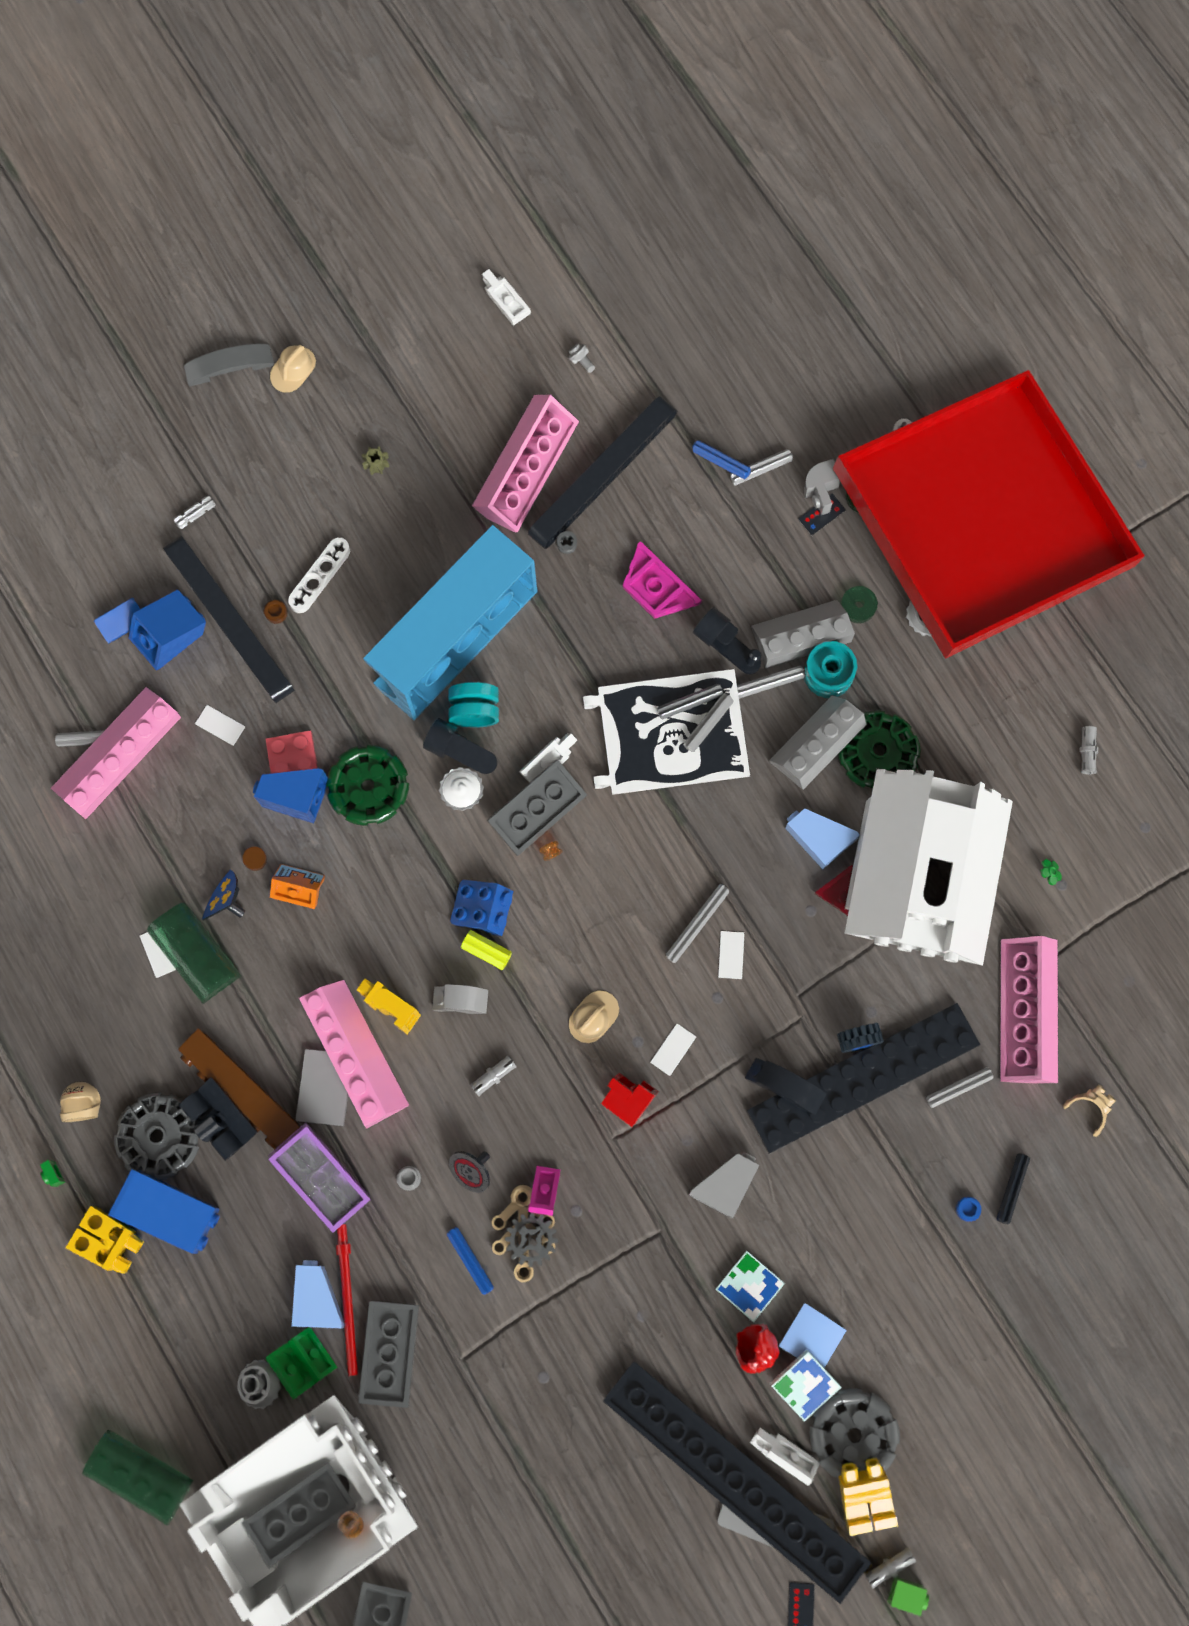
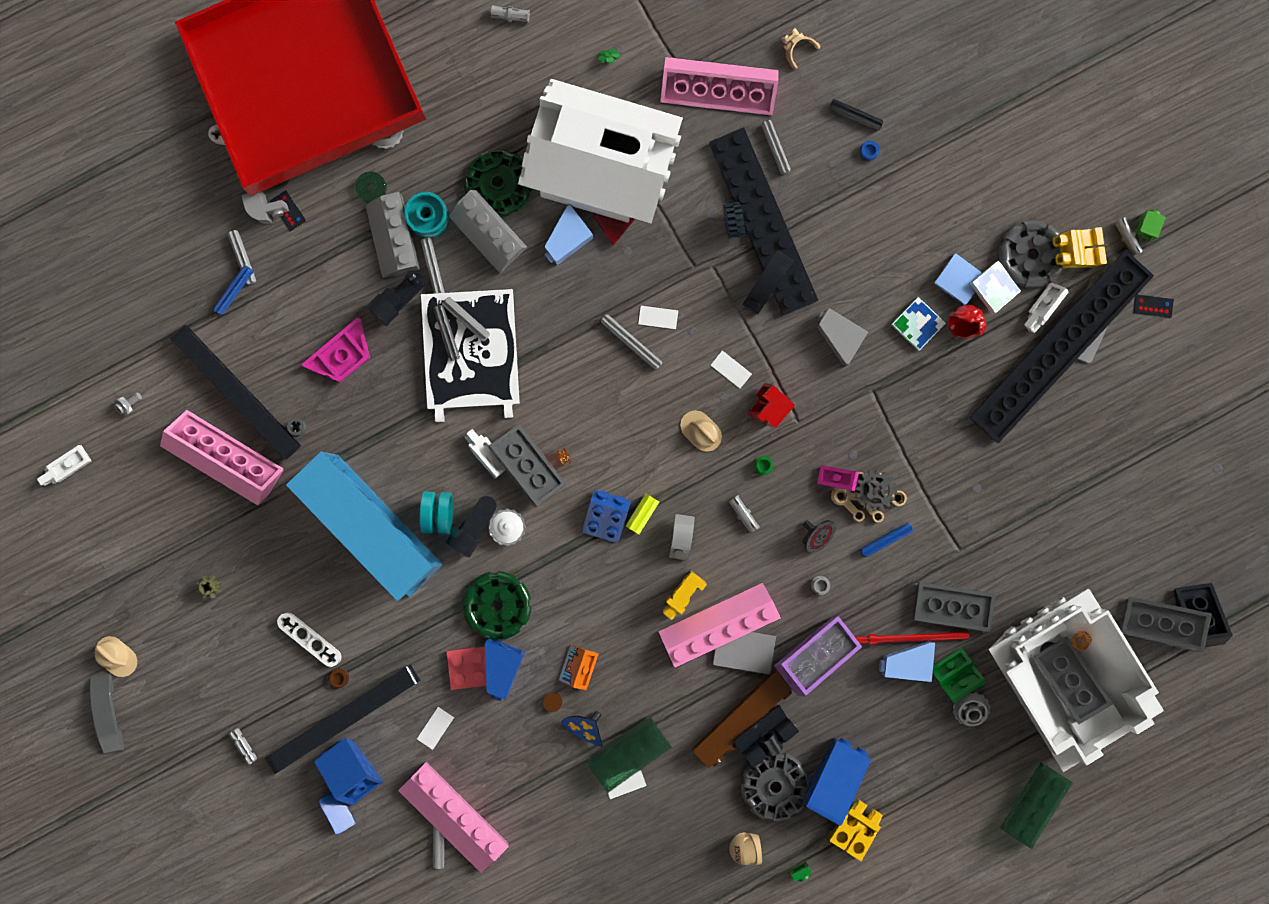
camera: 90 degrees left, 10 degrees up
(555, 1097) = (763, 465): none -> green plate

